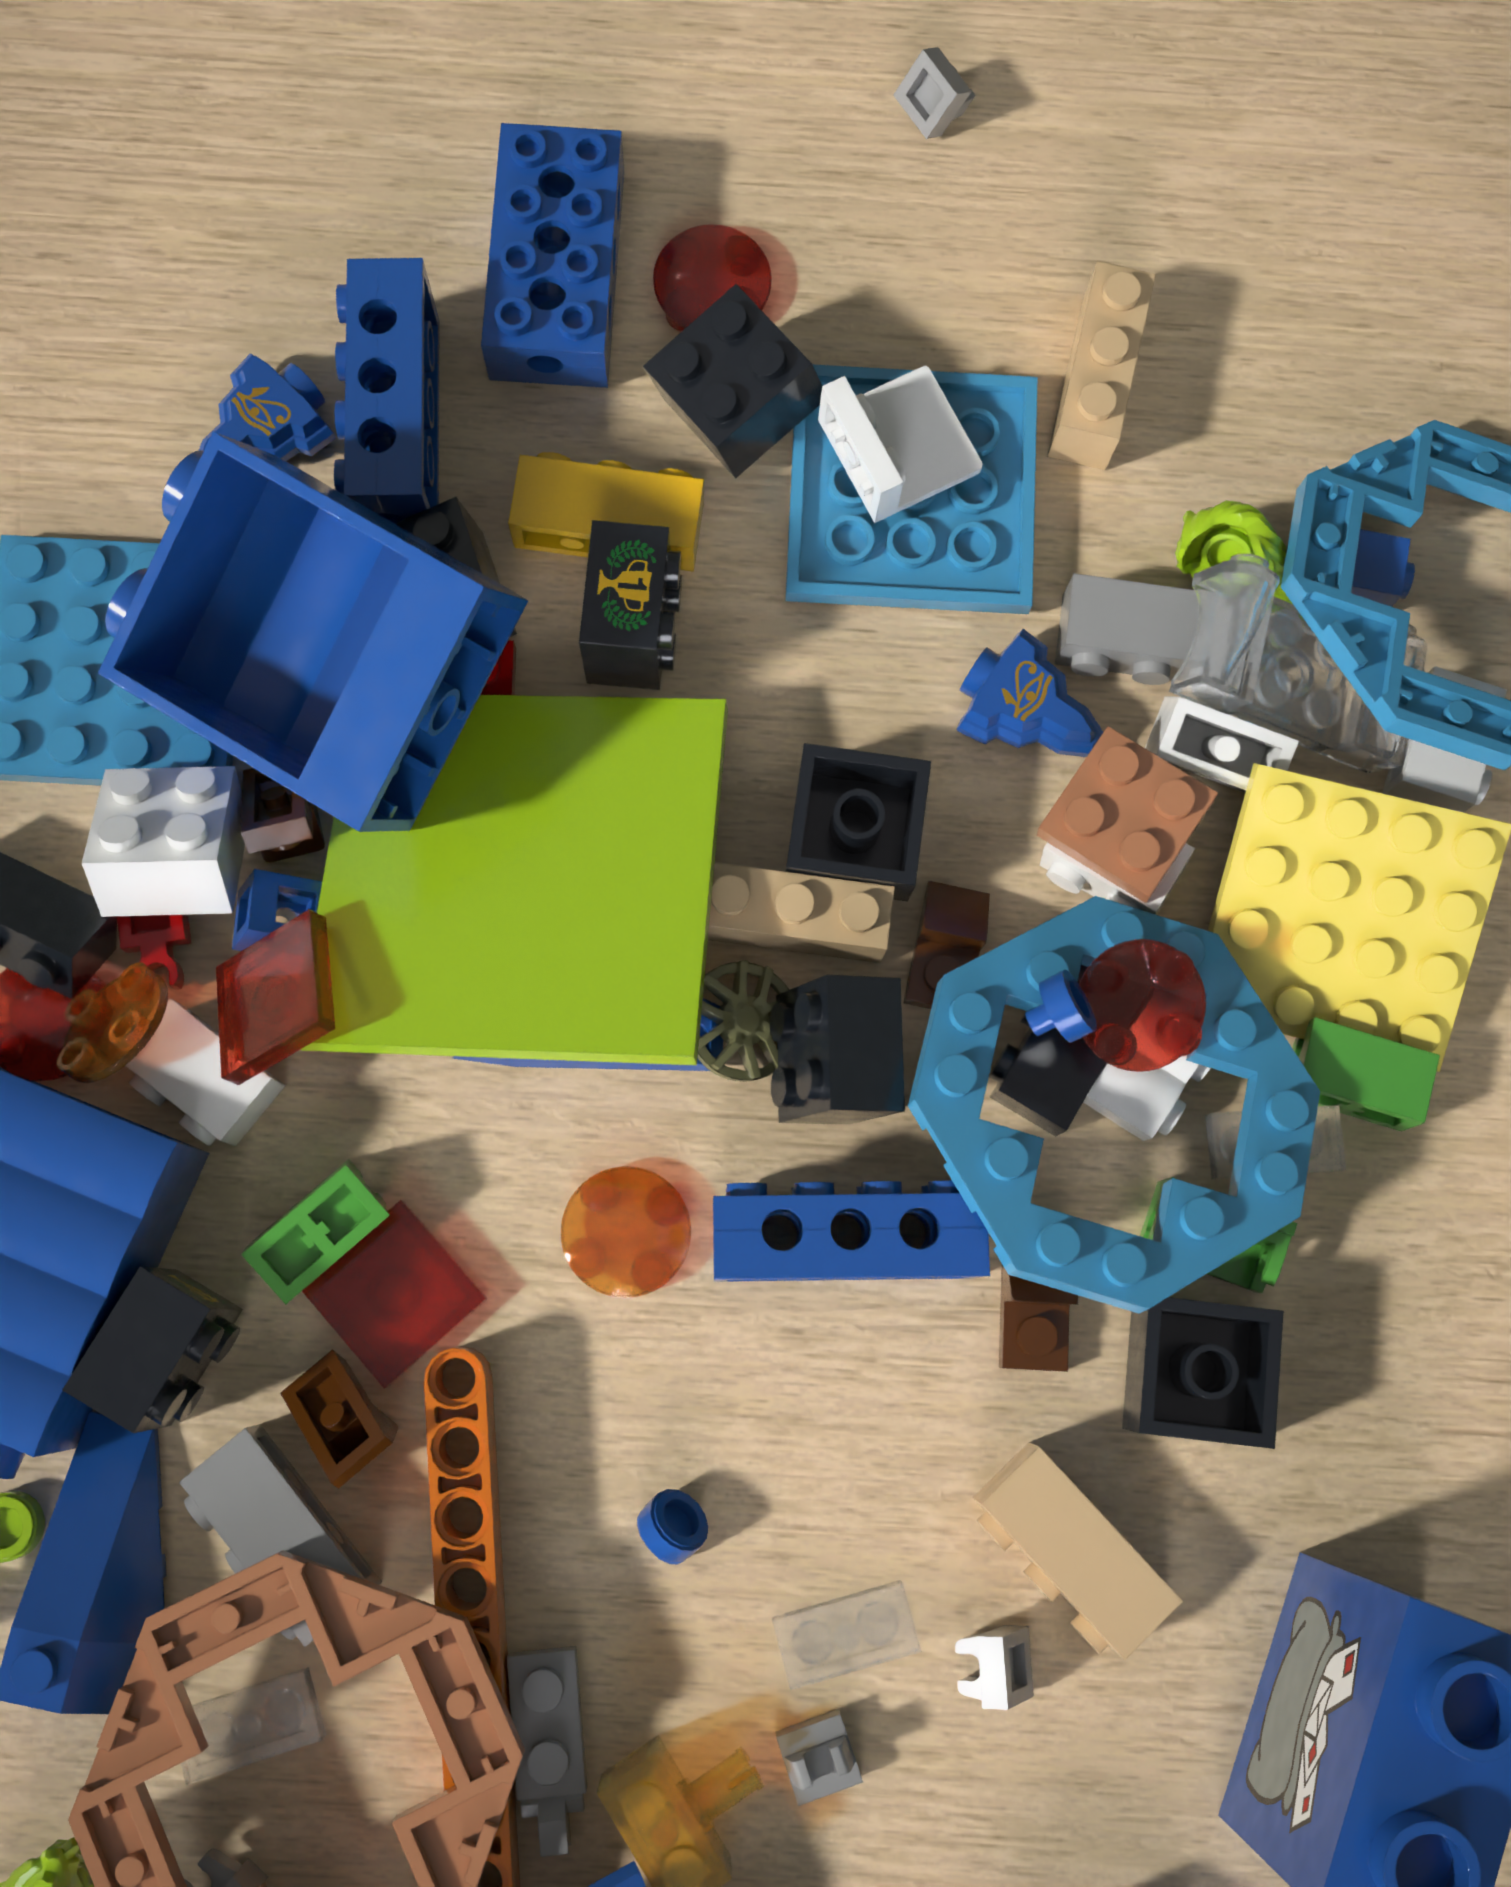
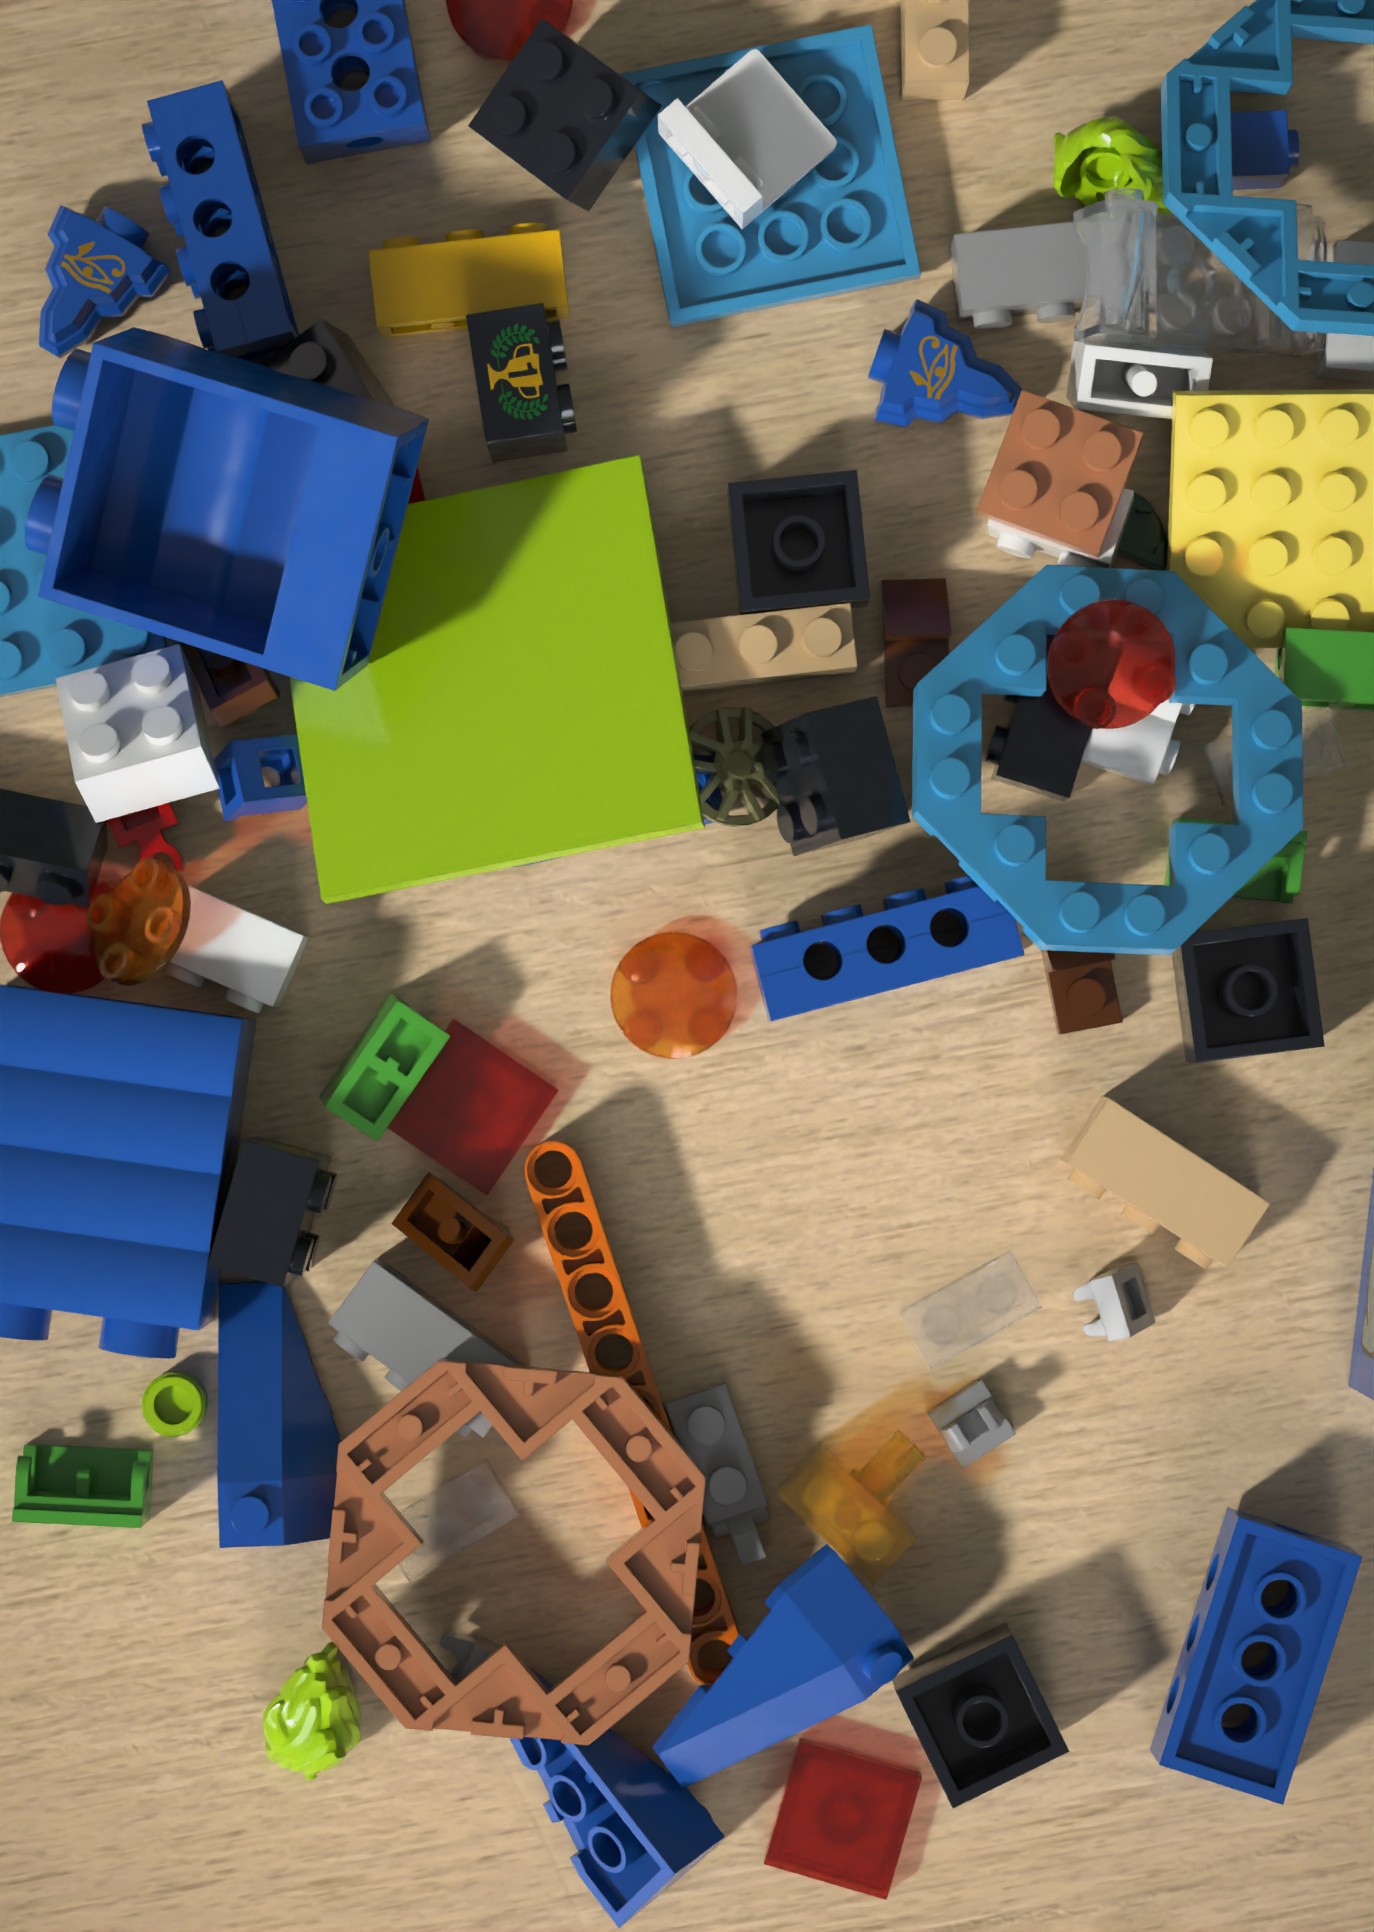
camera: 10 degrees left, 10 degrees up
(274, 997) = (288, 860): clear red tile -> none
(672, 1526) = (786, 1253): blue tile -> none
(1062, 1008) = (1036, 689): blue tile -> none
(1189, 899) = (1143, 537): none -> dark green tile

